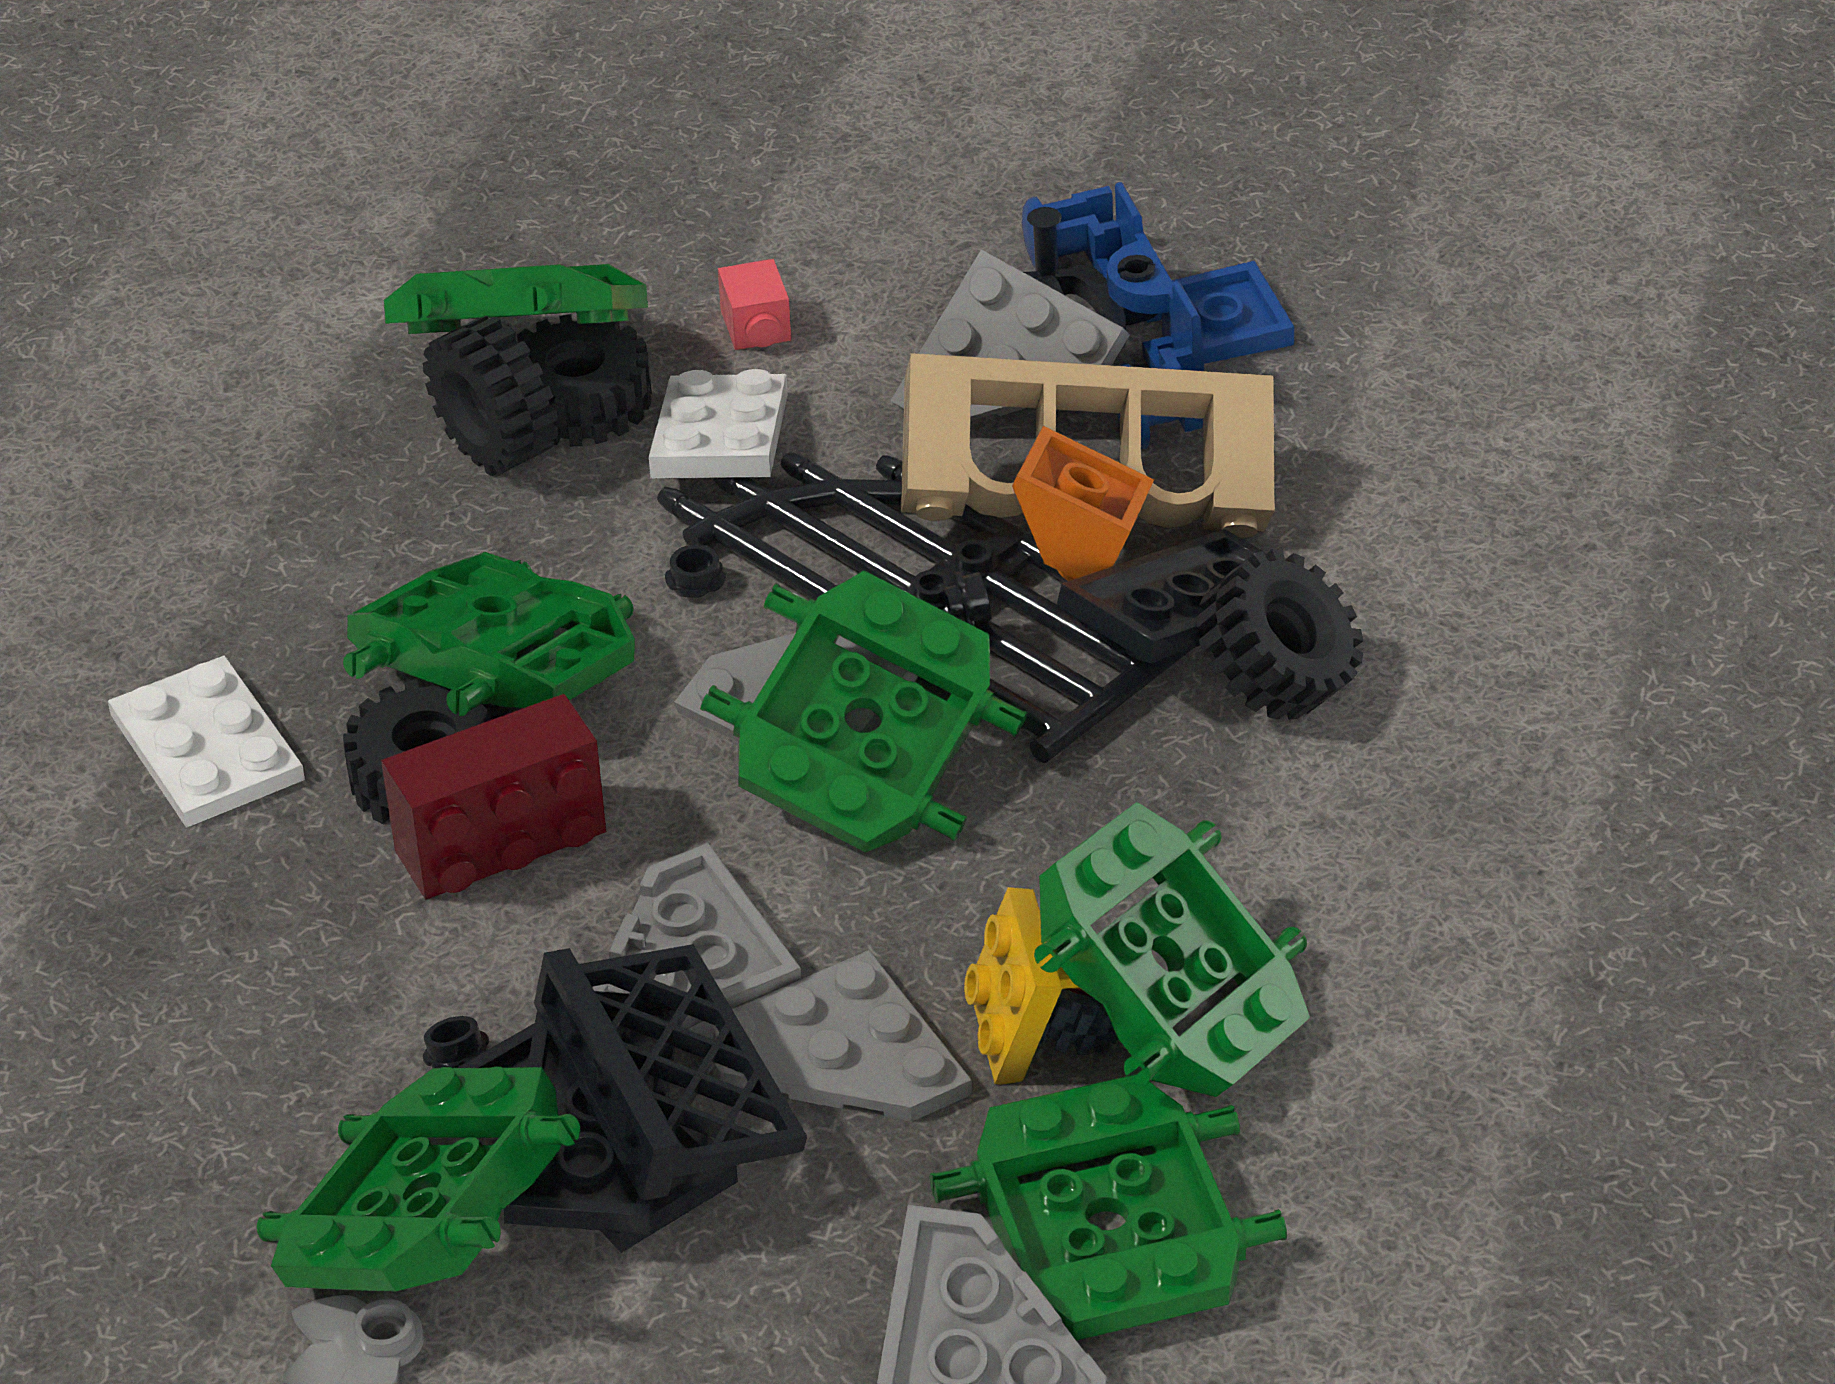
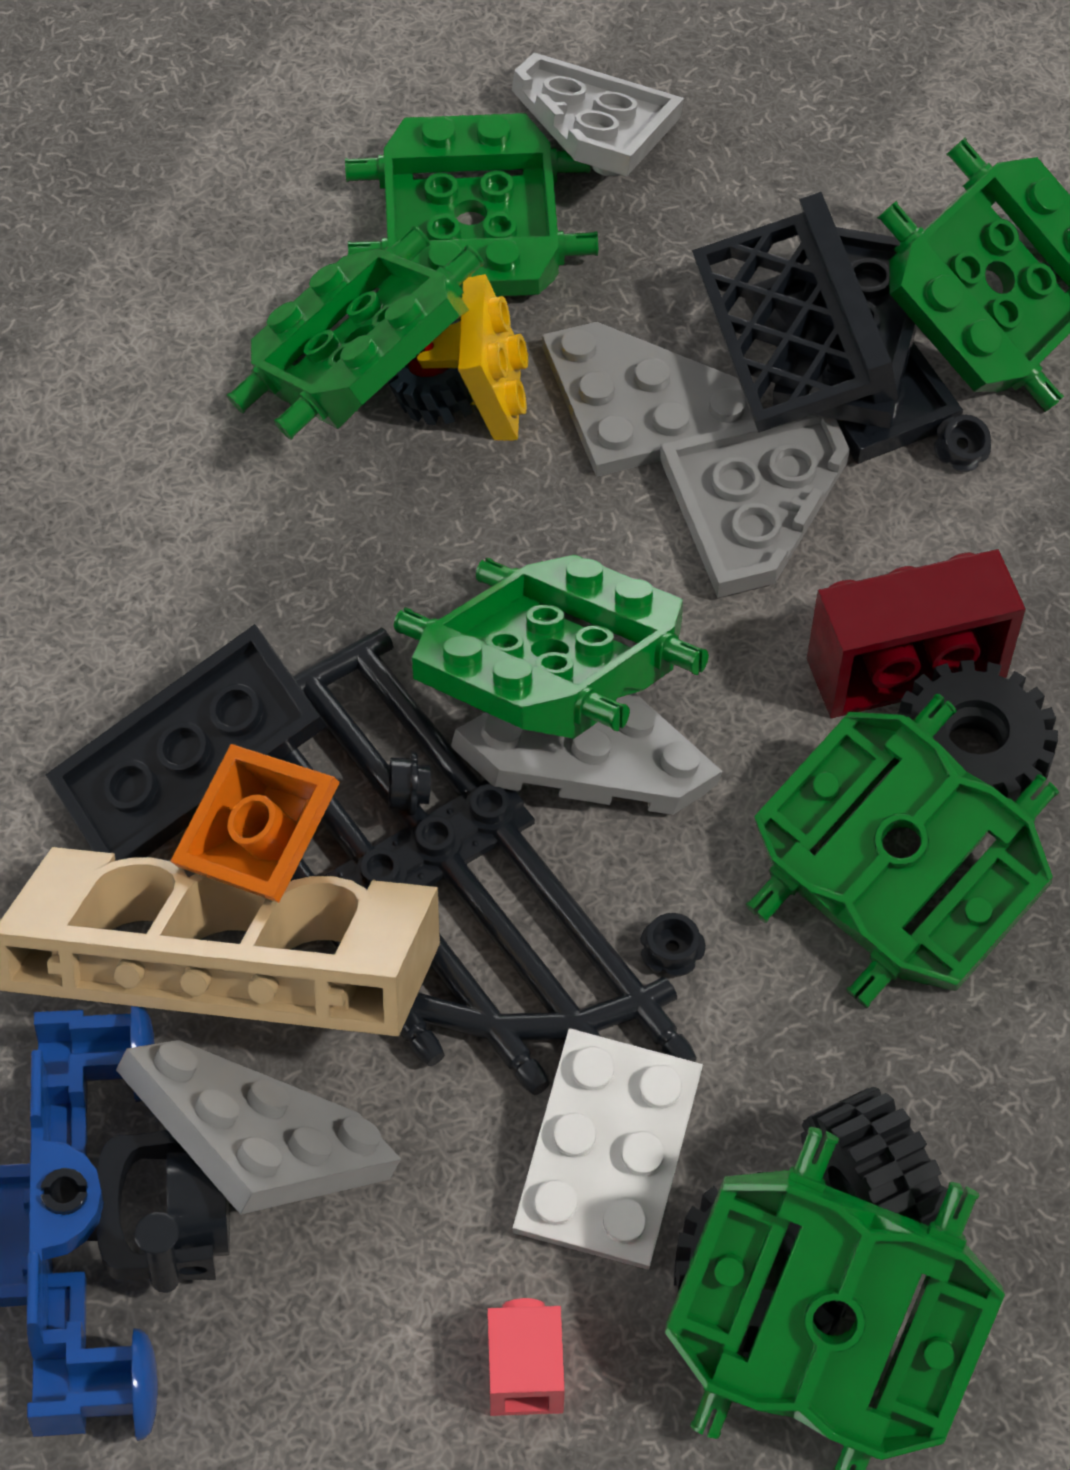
camera: 170 degrees left, 15 degrees up
(1304, 613) = (121, 661): black tyre -> none

